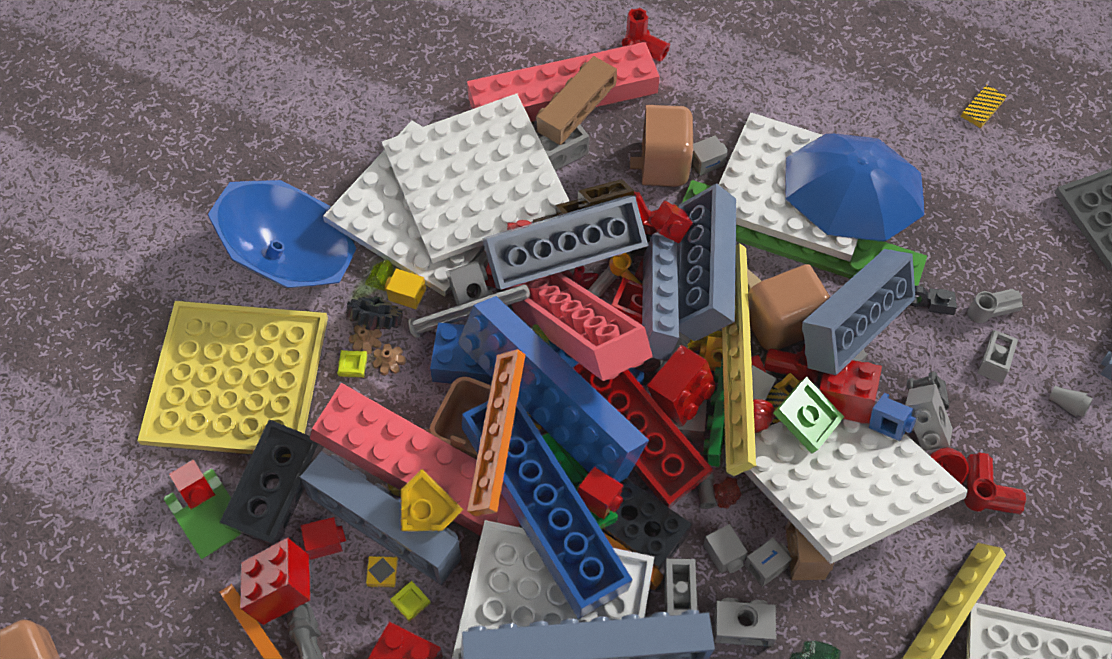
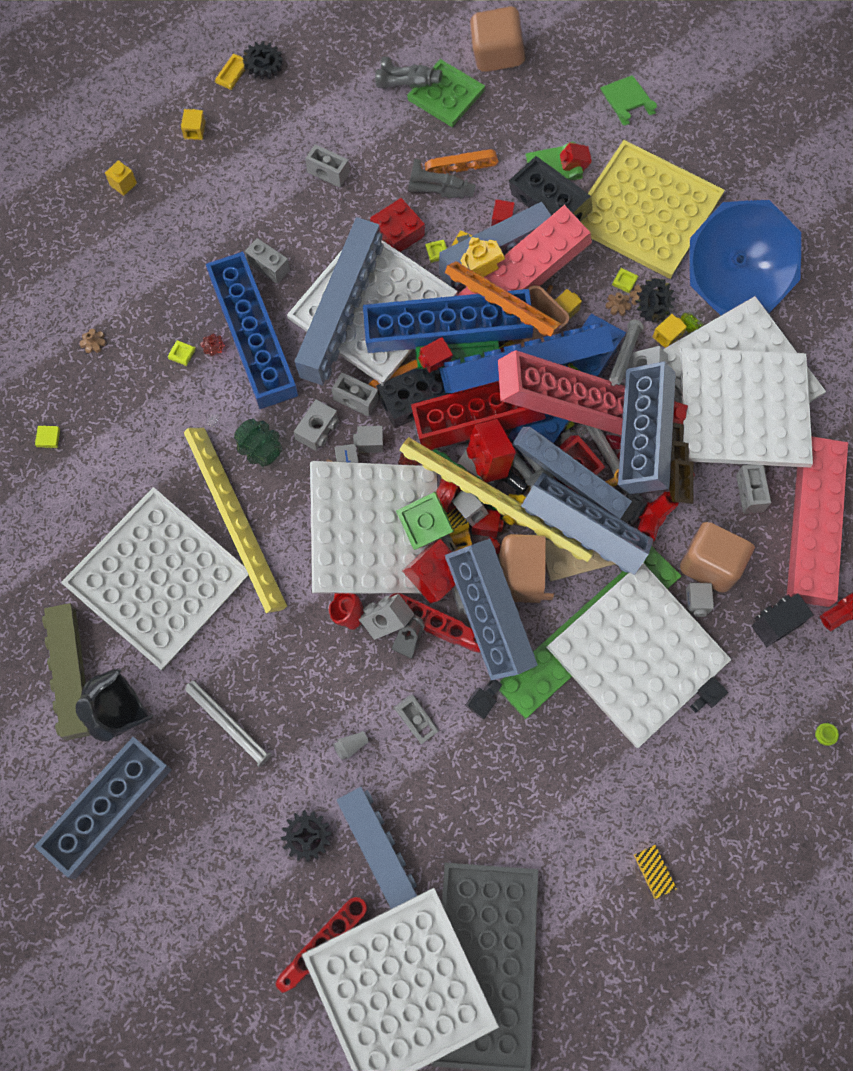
camera: 115 degrees right, 10 degrees up
(56, 469) = (626, 96): none -> bright green flag
(275, 581) = (482, 174): red brick -> none
(422, 407) = (569, 302): none -> yellow brick
(576, 100) = (787, 505): medium nougat brick -> none
(671, 221) = (634, 516): red brick -> none
(691, 78) = (781, 619): none -> black brick
(769, 23) = (827, 734): none -> lime plate
(796, 118) = (710, 694): none -> black plate
(854, 187) = (613, 691): blue piece -> none
(891, 418) = (396, 581): blue brick -> none
(893, 364) = (448, 623): none -> red piece
(994, 304) = (456, 743): light grey piece -> none
(994, 496) = (327, 635): red piece -> none

